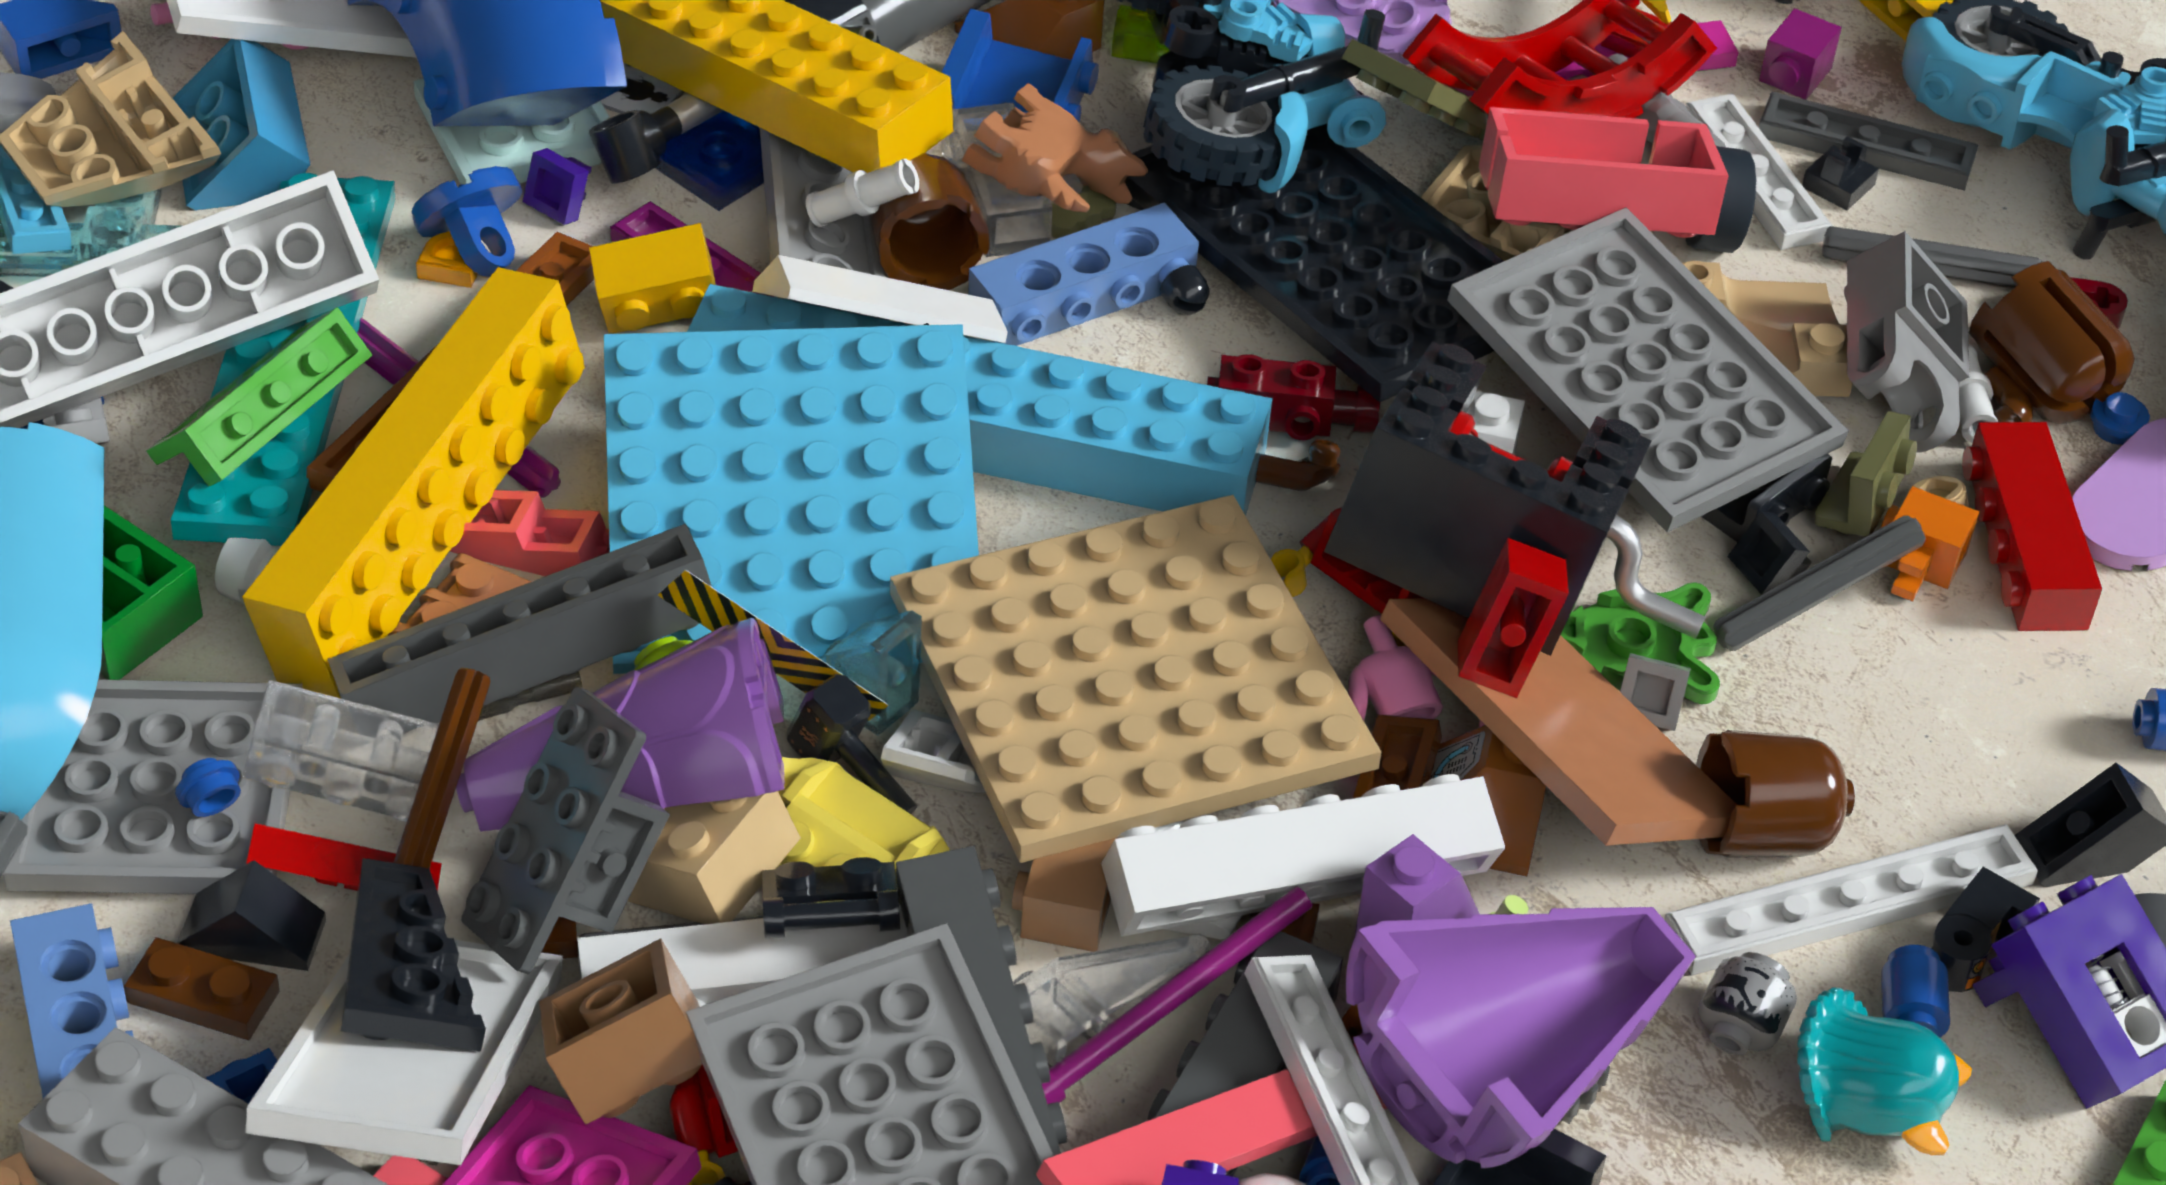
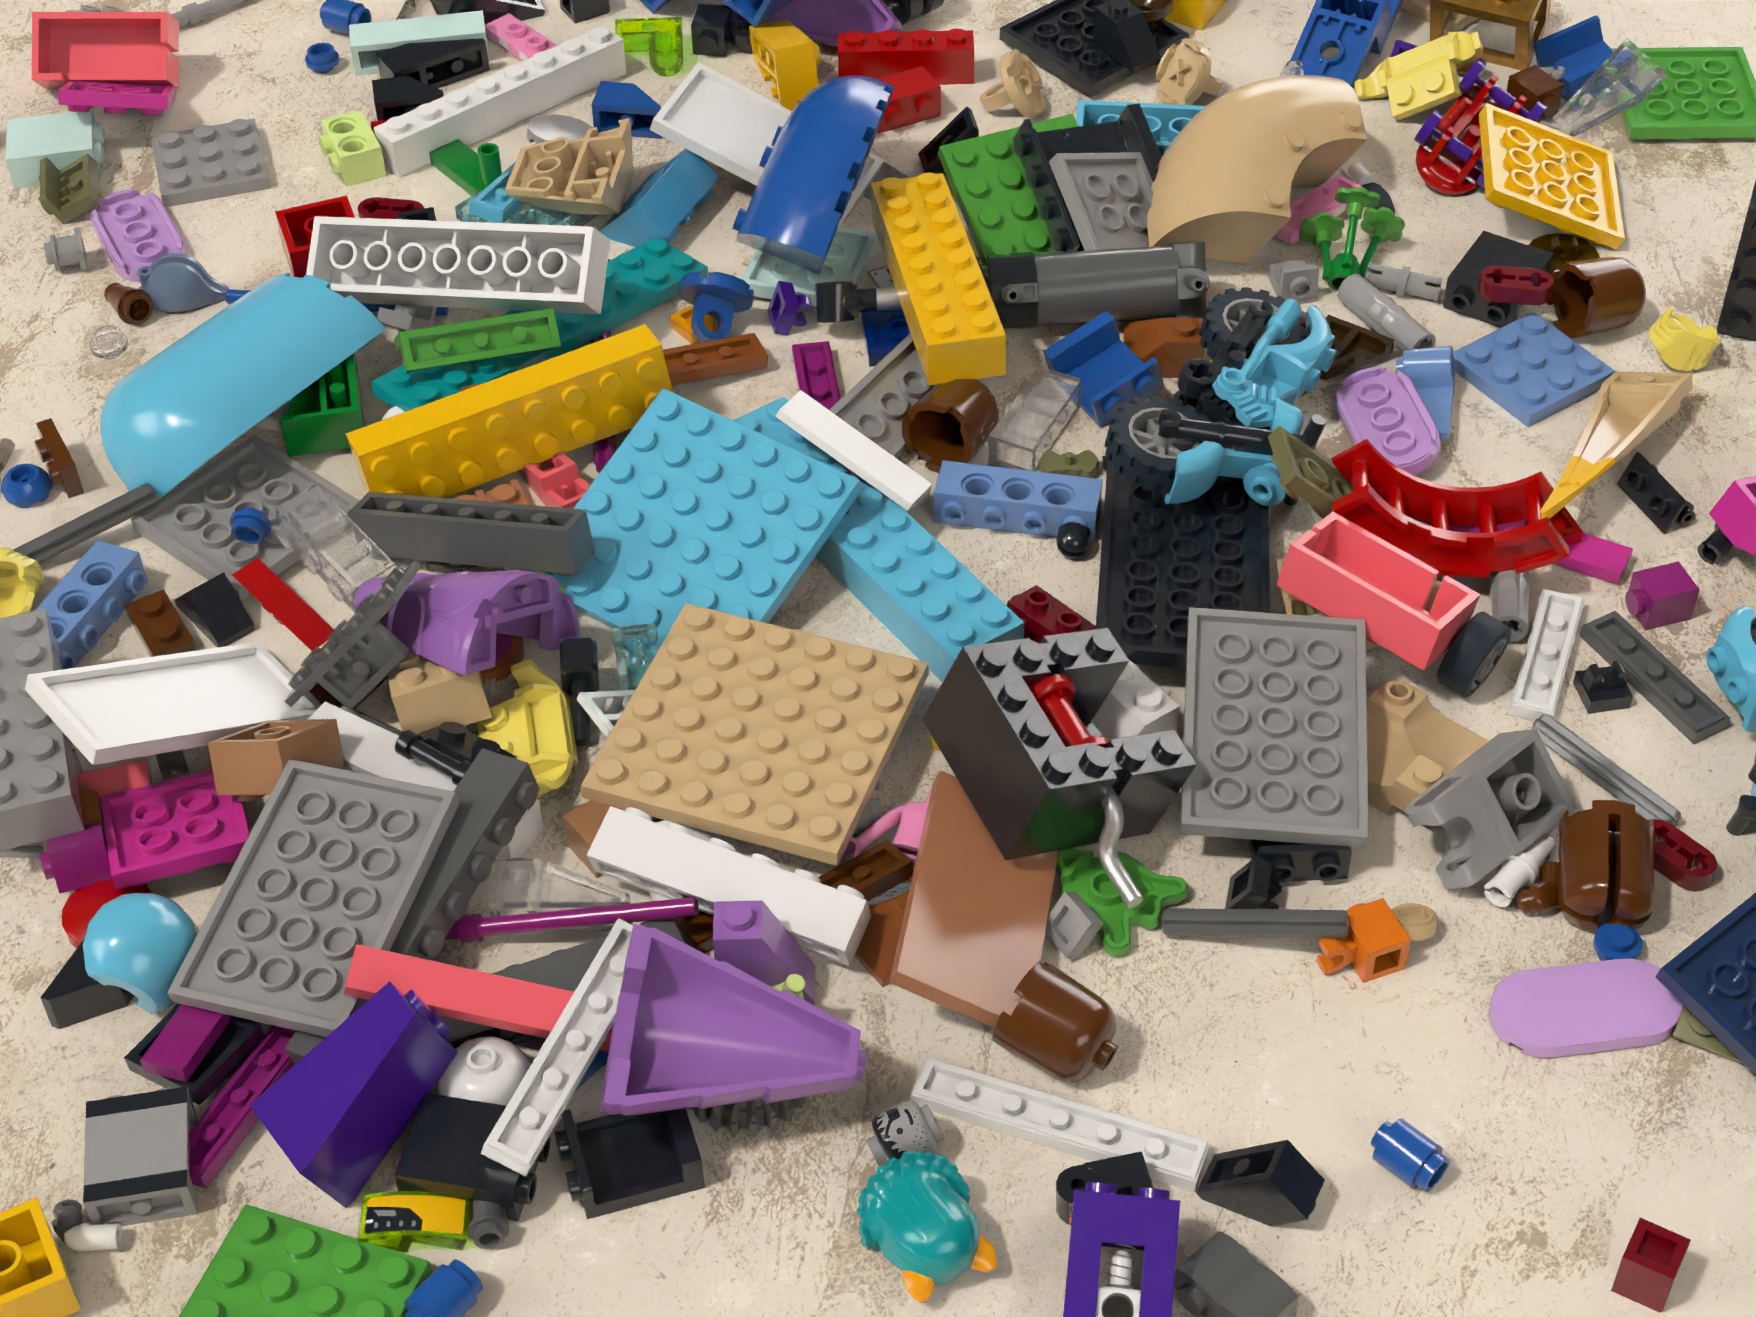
camera: 45 degrees right, 0 degrees up
(404, 966) = (221, 660): black wing -> none
(443, 768) = (341, 587): reddish brown axle -> none
(652, 277) = (766, 376): yellow brick -> none
(788, 658) = (580, 613): sticker -> none
(862, 193) = (912, 384): white pin -> none
(1047, 146) = (1053, 411): nougat animal -> none
(1512, 618) = (970, 814): red brick -> none
(1869, 479) = (1370, 877): olive bracket -> none
(1916, 988) = (1016, 1201): blue brick -> none
(2032, 526) = (1454, 973): red brick -> none

